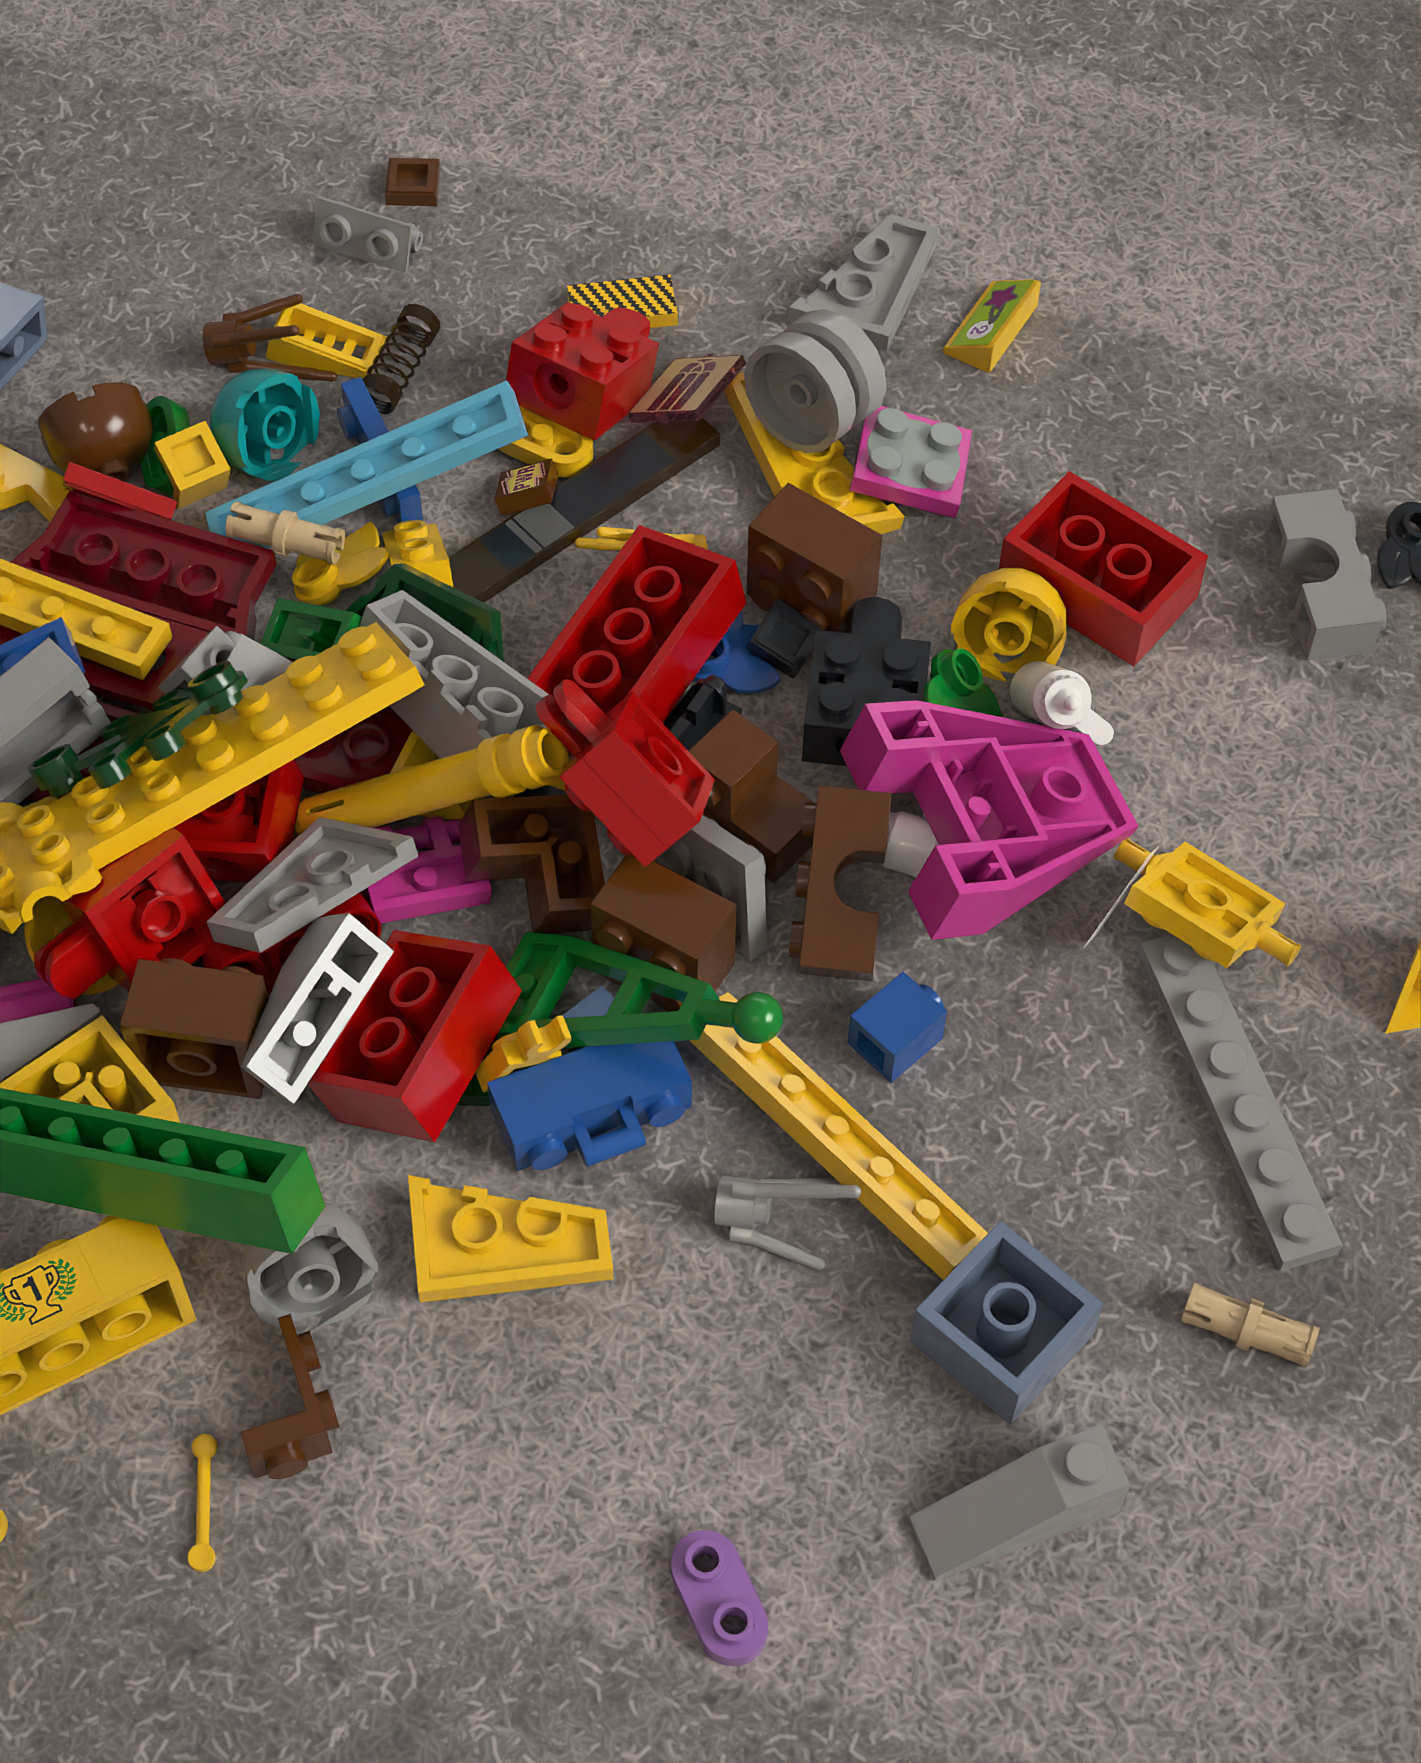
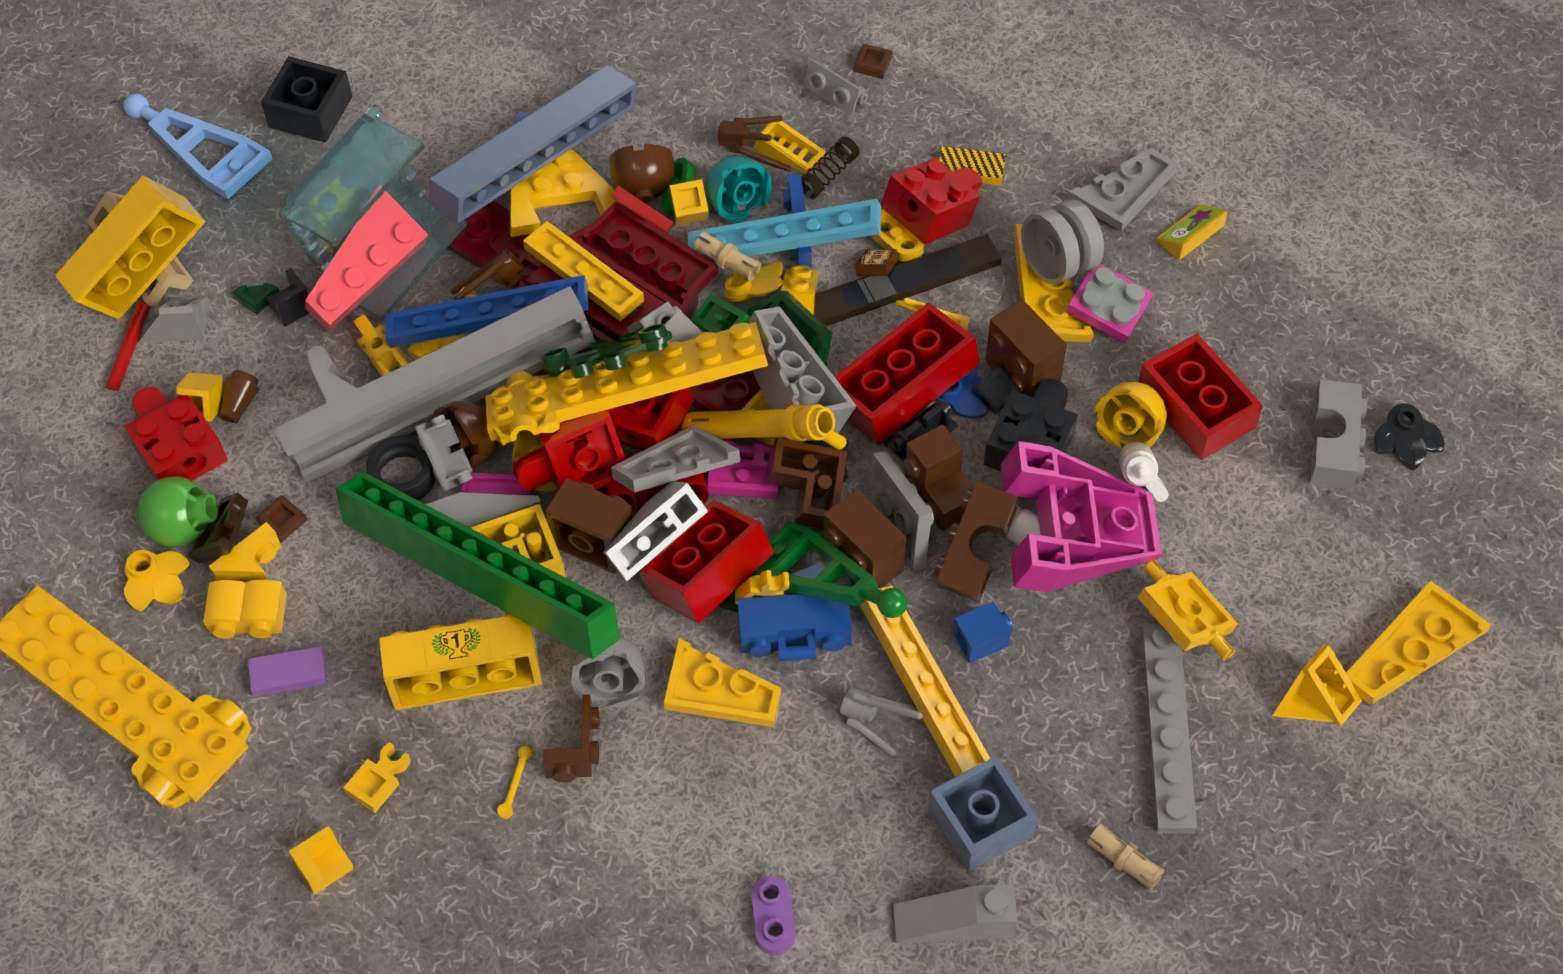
camera: 20 degrees right, 0 degrees up
(627, 770) = (865, 443): red brick -> none
(687, 389) = (989, 226): piece -> none
(959, 684) = (1088, 446): green plate -> none
(1121, 896) = (1135, 593): white sticker -> none

